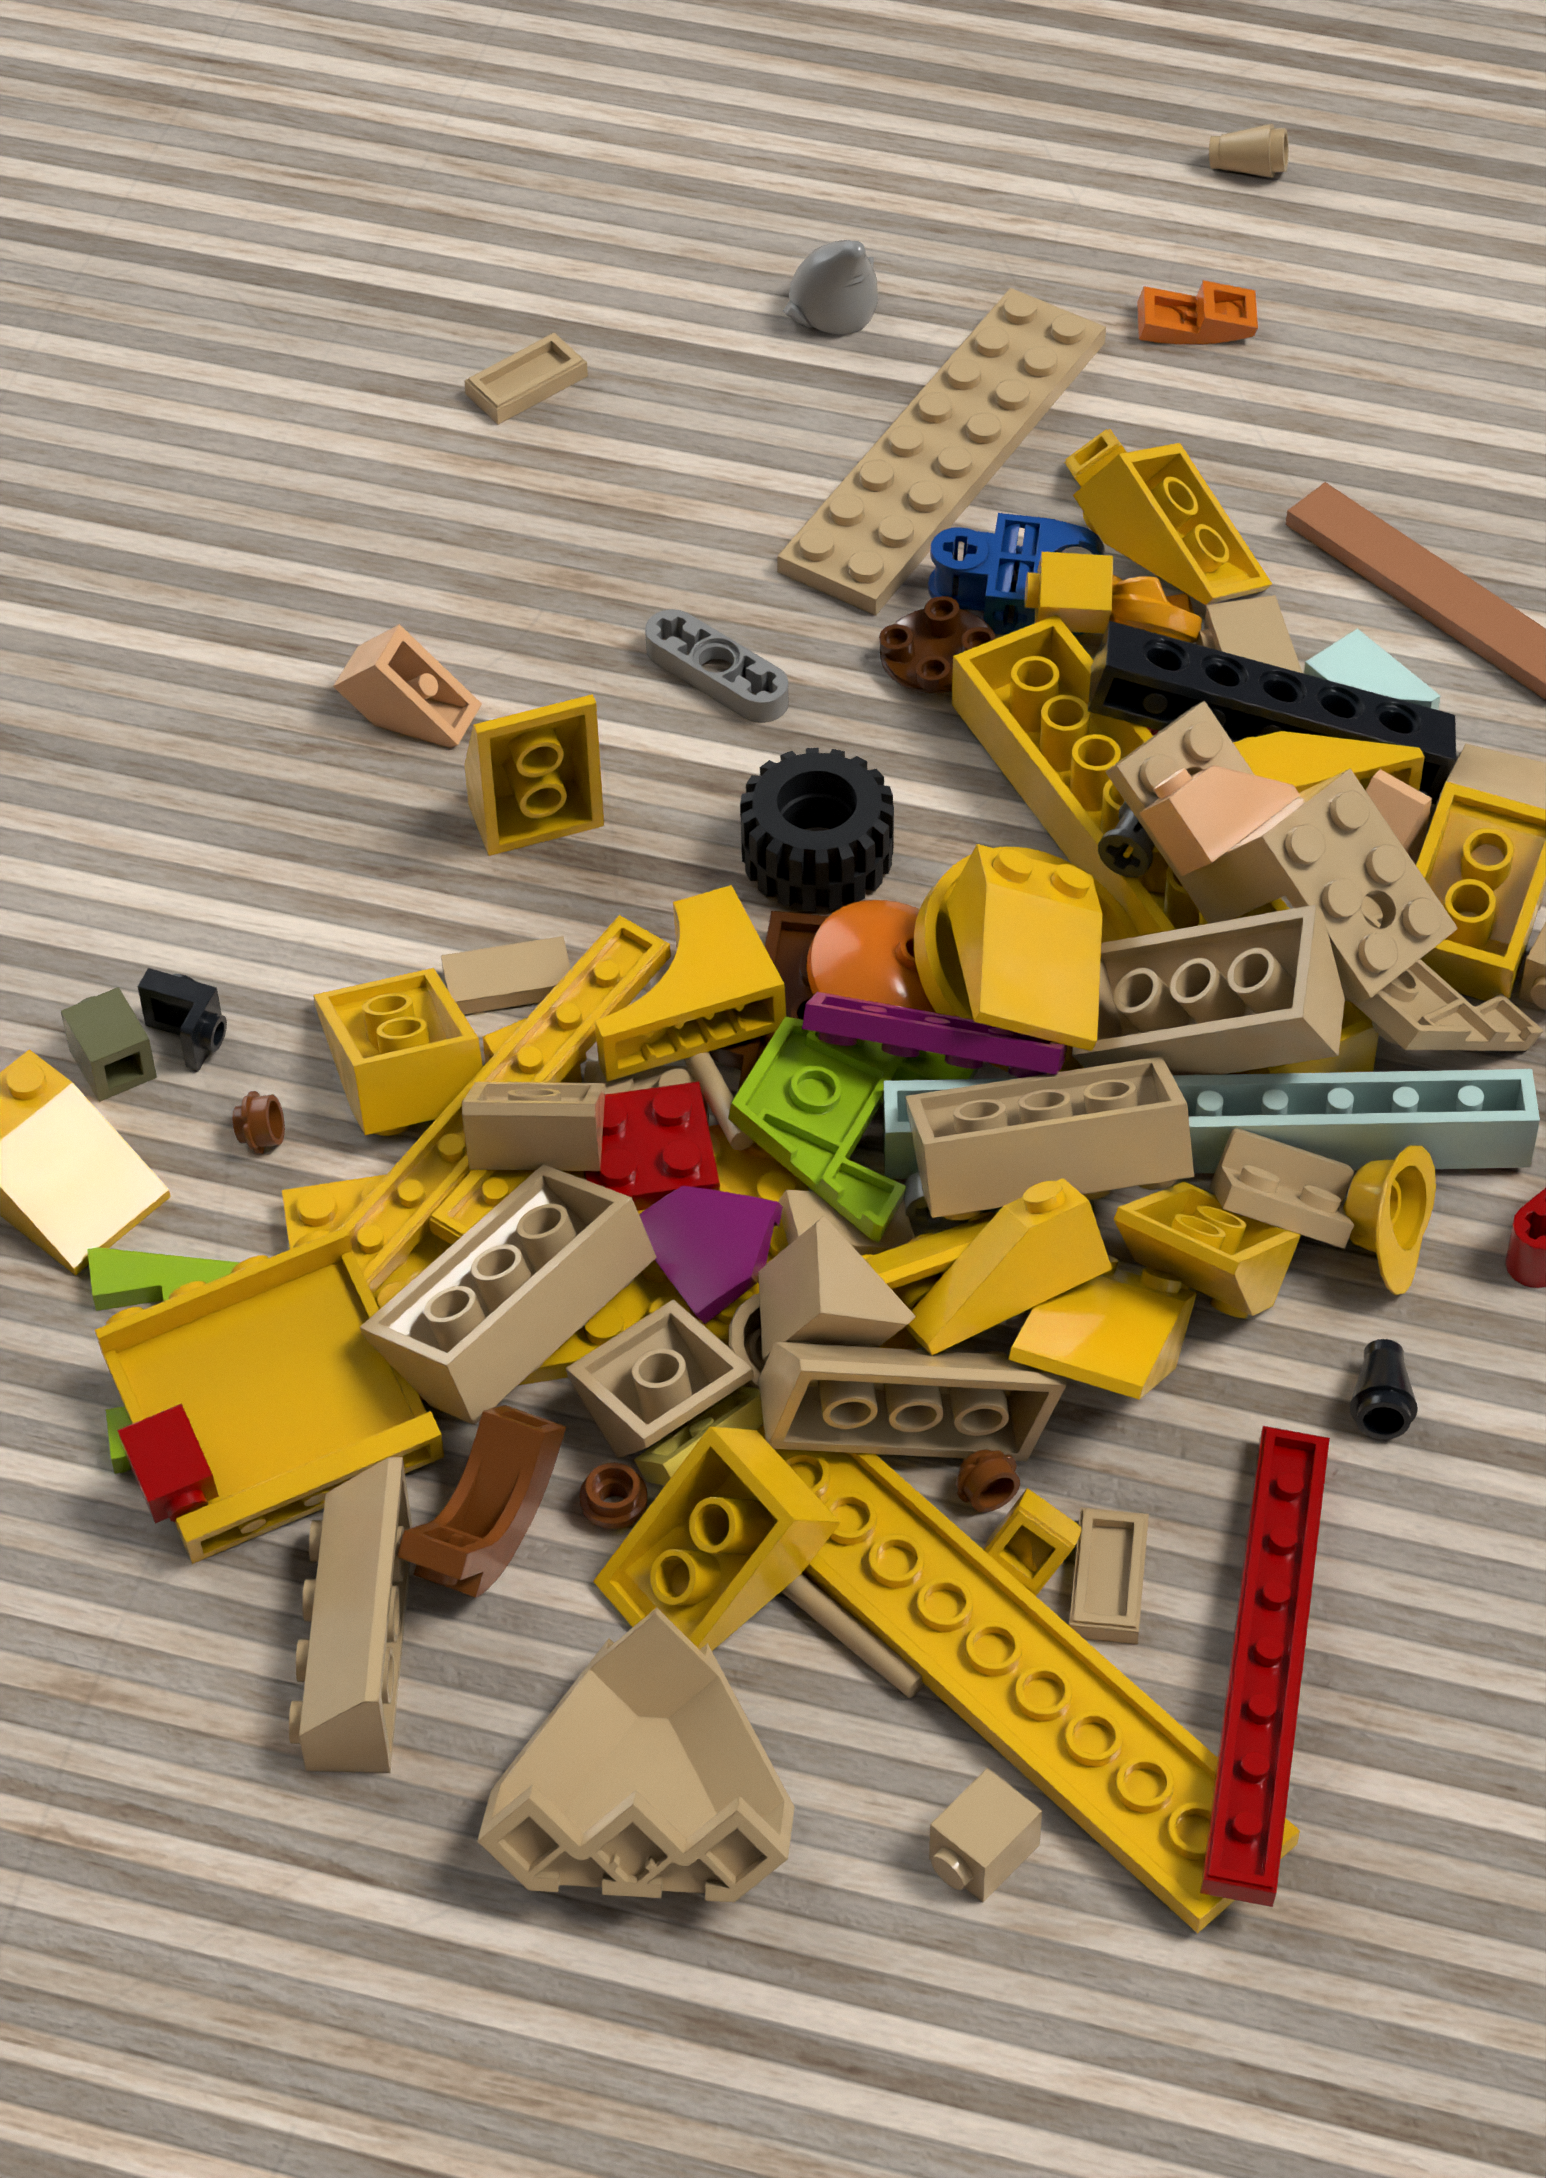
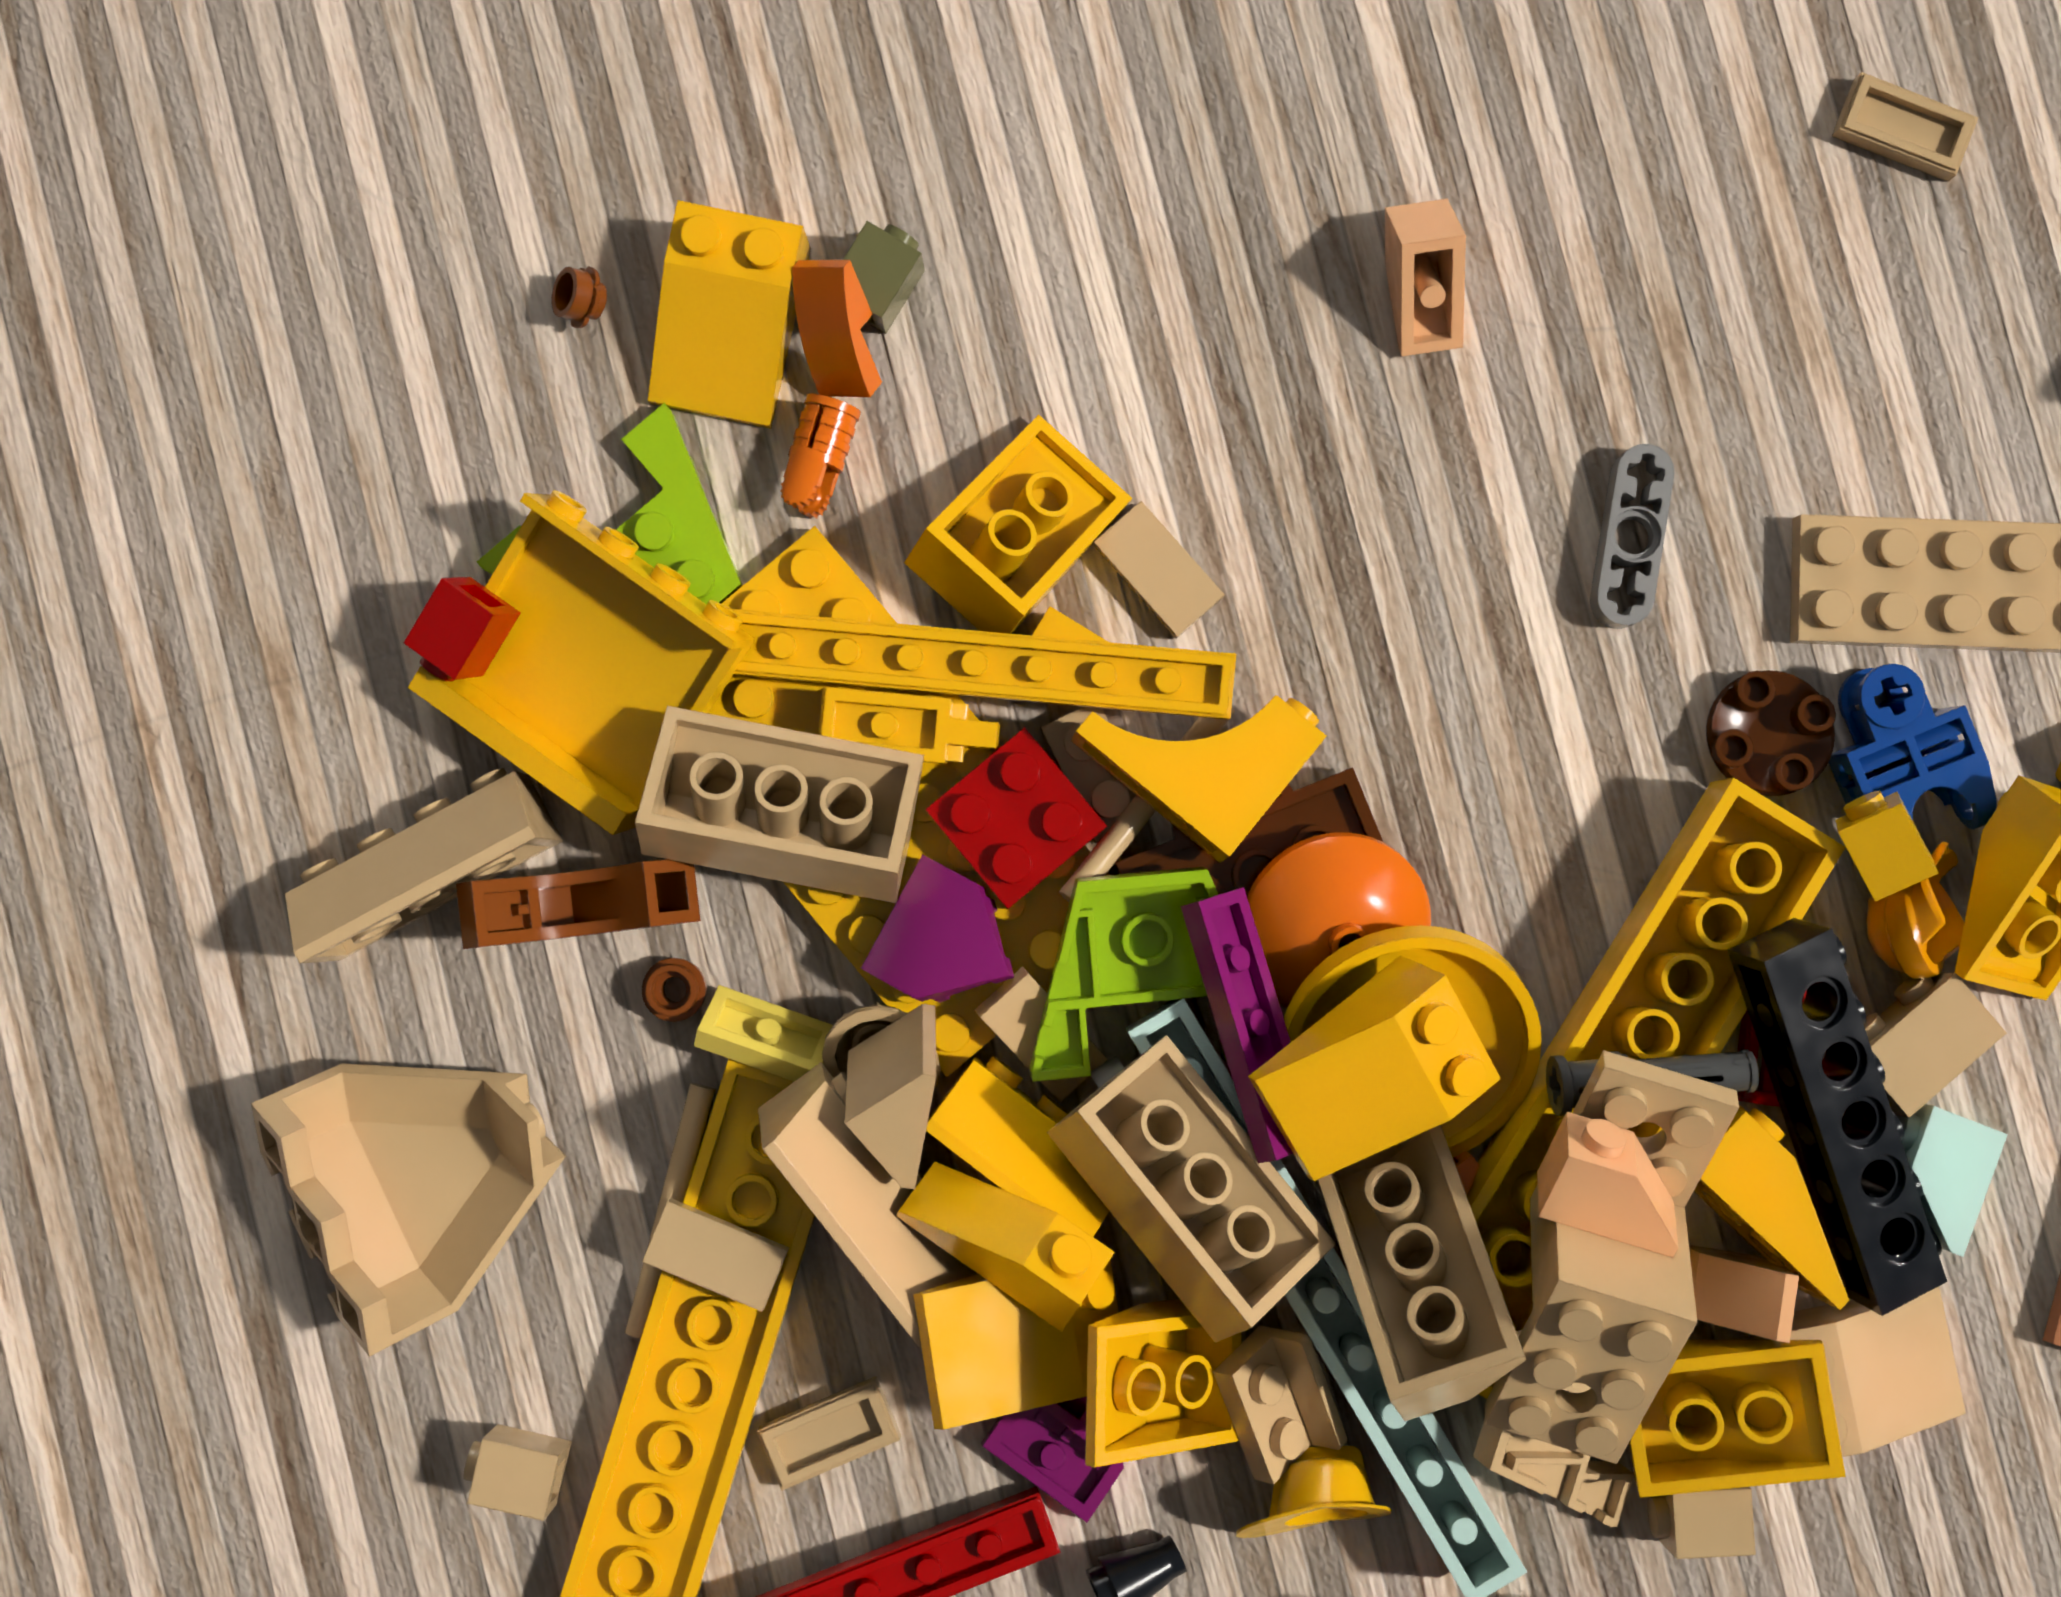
camera: 65 degrees right, 35 degrees up
(130, 1077) = (829, 320): none -> orange slope
(184, 1009) = (956, 309): black bracket -> none
(227, 1162) = (818, 453): none -> orange hinge
(259, 1121) = (874, 459): dark orange plate -> none
(534, 1125) = (961, 721): tan slope -> none
(535, 775) = (1369, 466): yellow slope -> none
(655, 1378) = (781, 976): tan slope -> none
(718, 1539) = (649, 1120): yellow slope -> none
(814, 793) = (1522, 745): black tyre -> none
(879, 1554) = (715, 1254): none -> tan tile
(987, 1480) = (855, 1291): dark orange plate -> none
(1033, 1540) = (816, 1360): yellow slope -> none
(1228, 1392) = (1050, 1452): none -> magenta slope

